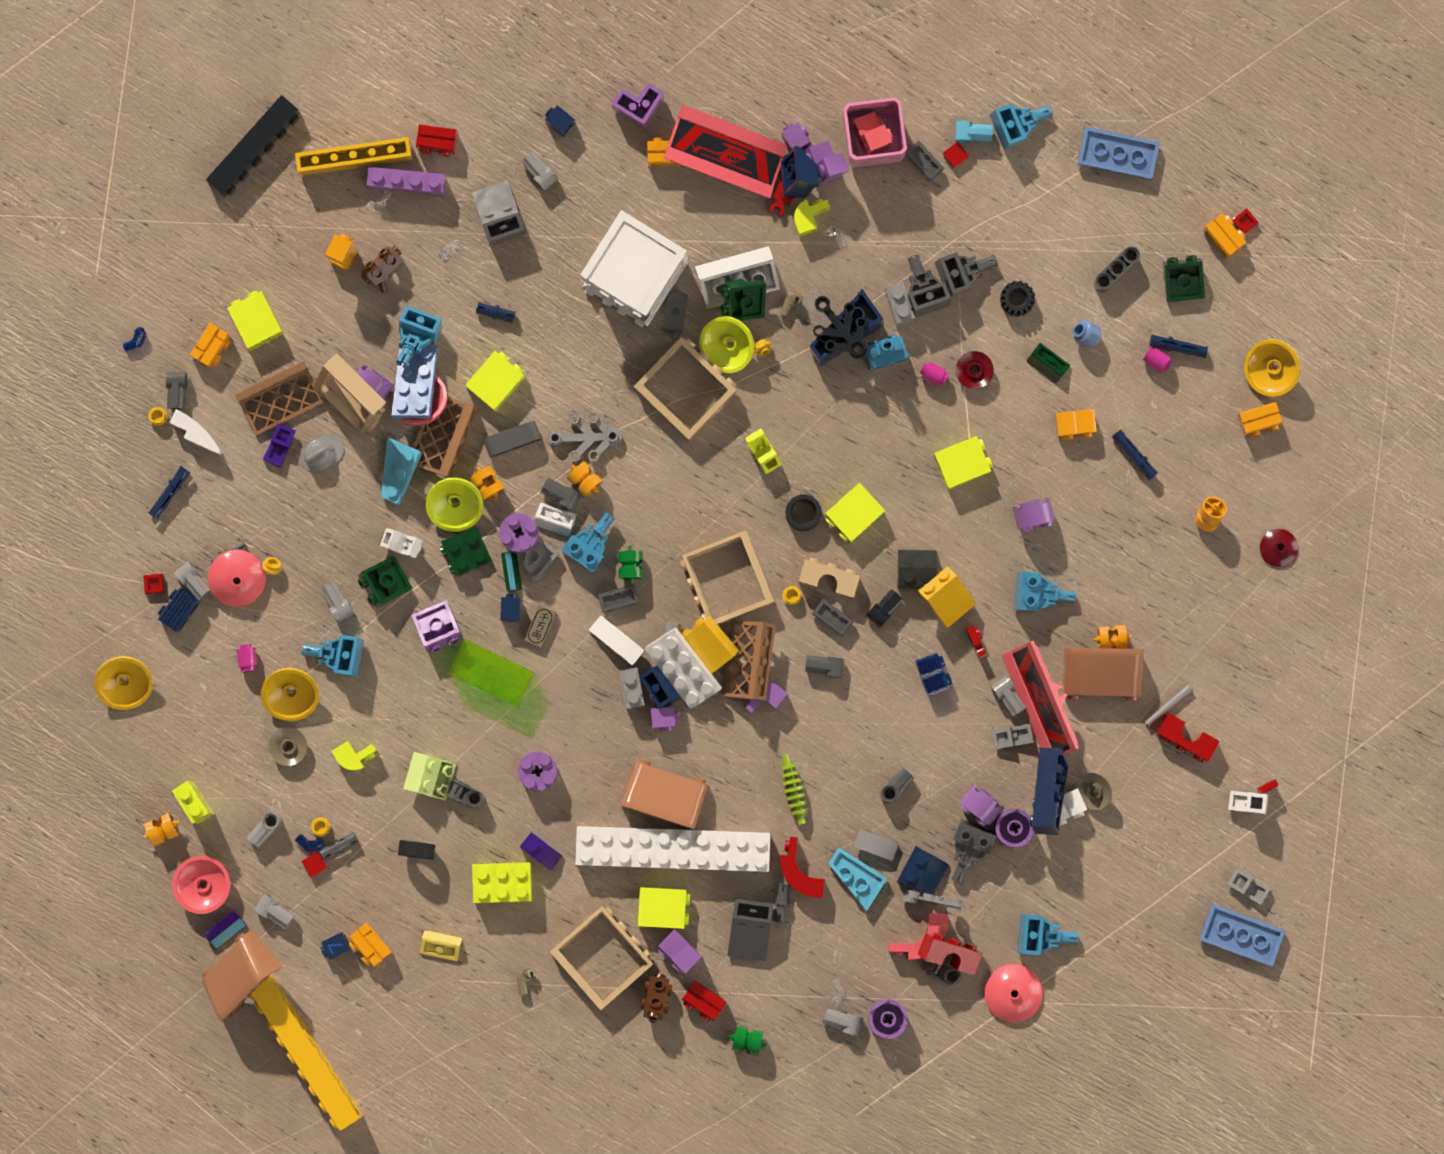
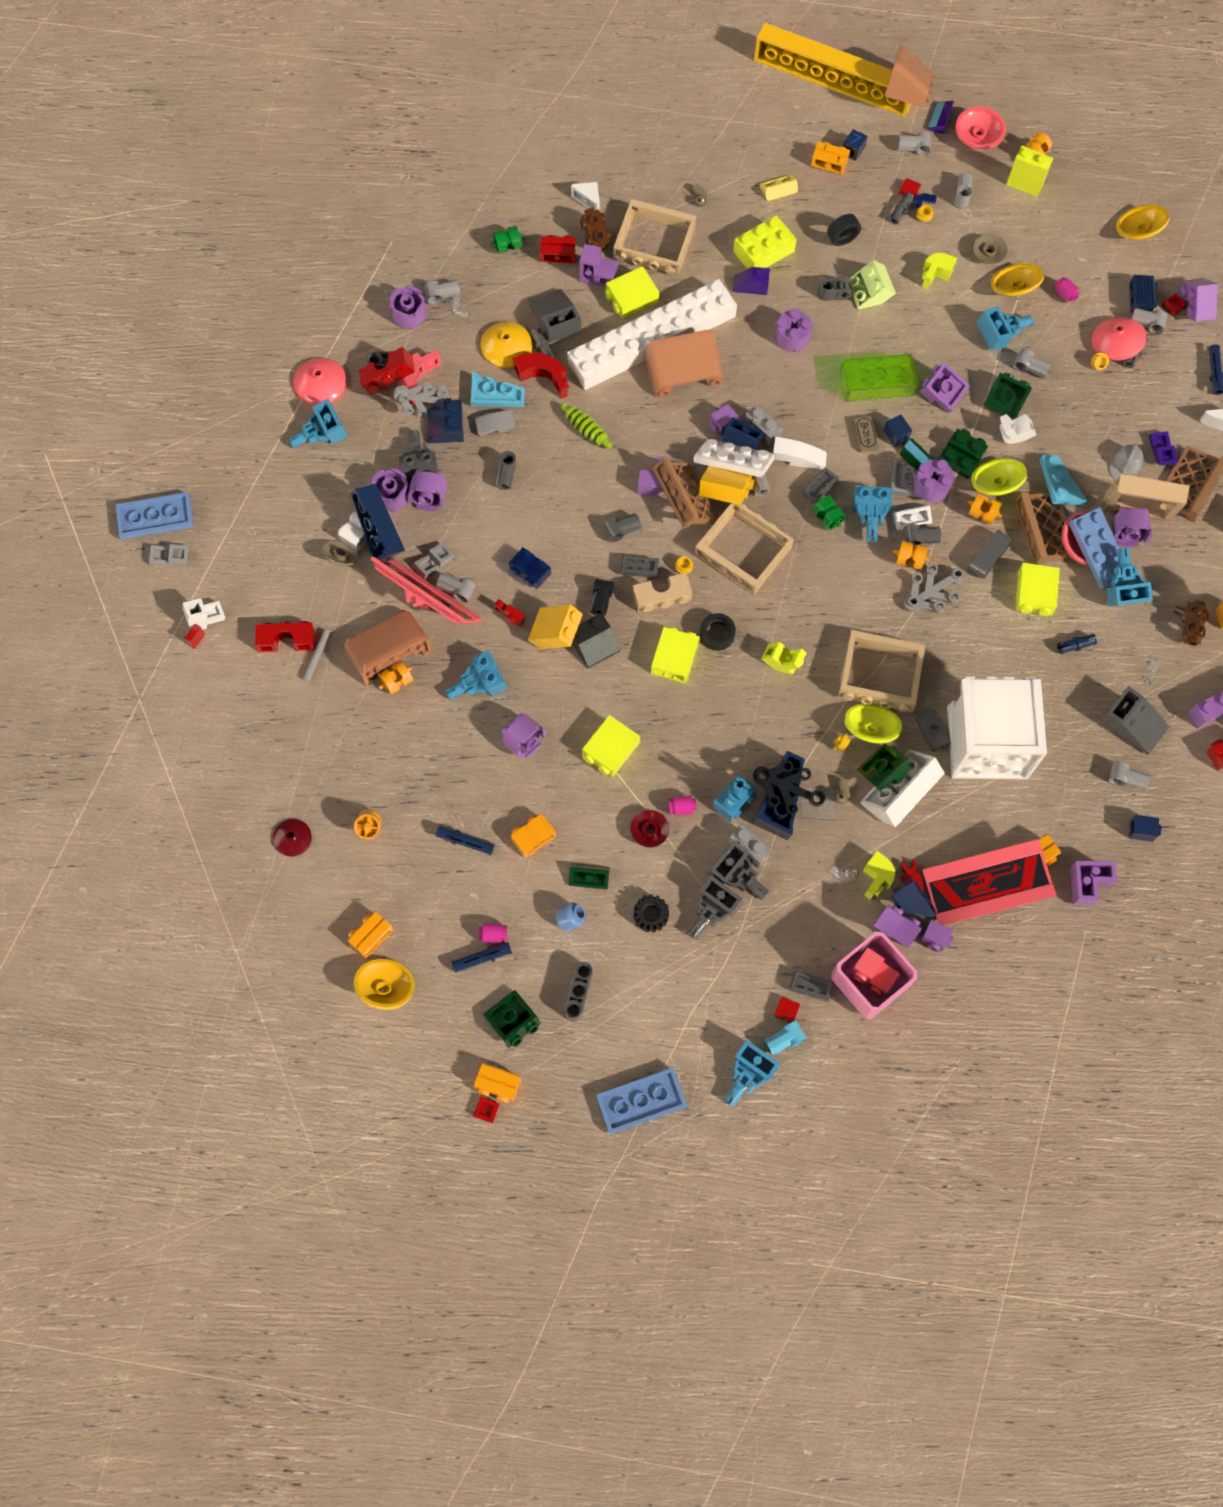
camera: 145 degrees right, 15 degrees down
(132, 570) = (1201, 297): none -> medium lavender brick
(635, 1045) = (586, 194): none -> white slope
(800, 922) = (502, 351): none -> yellow dish

